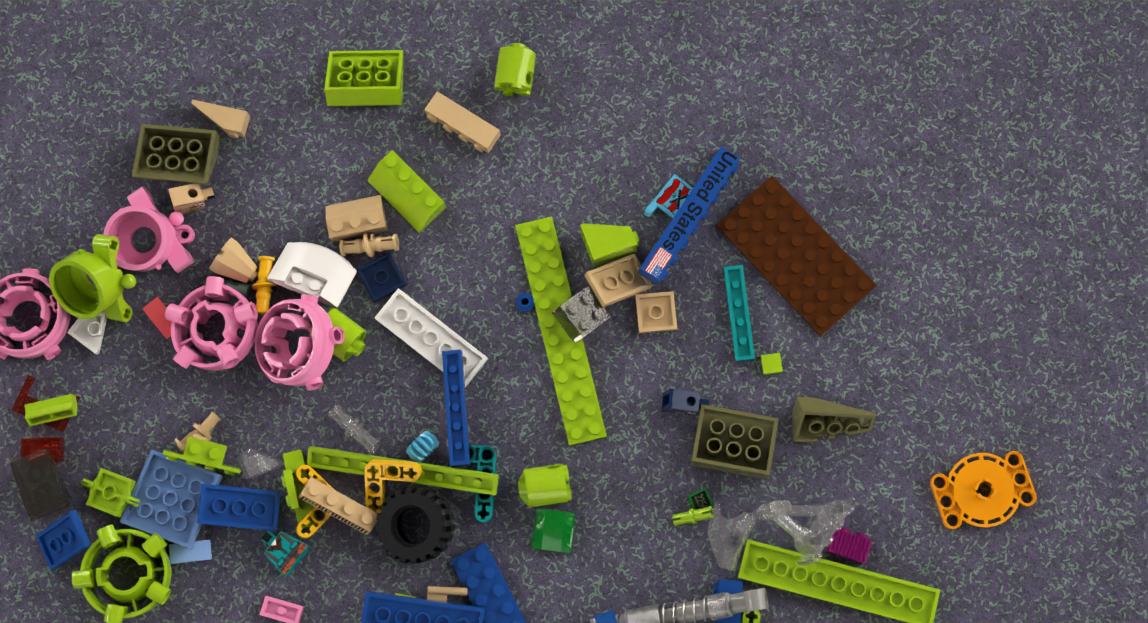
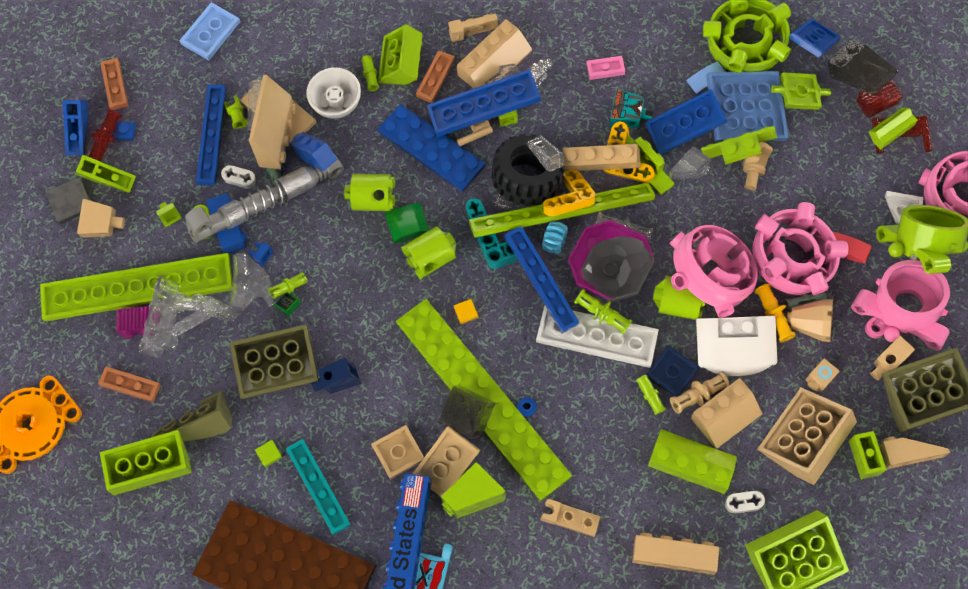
camera: 155 degrees right, 10 degrees down
(257, 212) = (822, 376): none -> tan brick
(260, 128) = (867, 455): none -> lime brick
(298, 170) = (808, 435): none -> tan slope
(380, 144) = (745, 507): none -> white beam
(384, 392) = (611, 261): none -> dark grey rock
(384, 527) = (547, 154): none -> clear slope
(411, 264) = (651, 394): none -> lime pin
(415, 351) = (603, 311): none -> lime piece
(533, 190) = (571, 518): none -> tan plate
(538, 417) = (465, 311): none -> yellow tile
(574, 574) = (364, 192): none -> lime cylinder
(706, 561) = (263, 253): none -> blue tile
(876, 486) = (129, 384): none -> nougat plate
(885, 398) = (145, 463): none -> lime slope

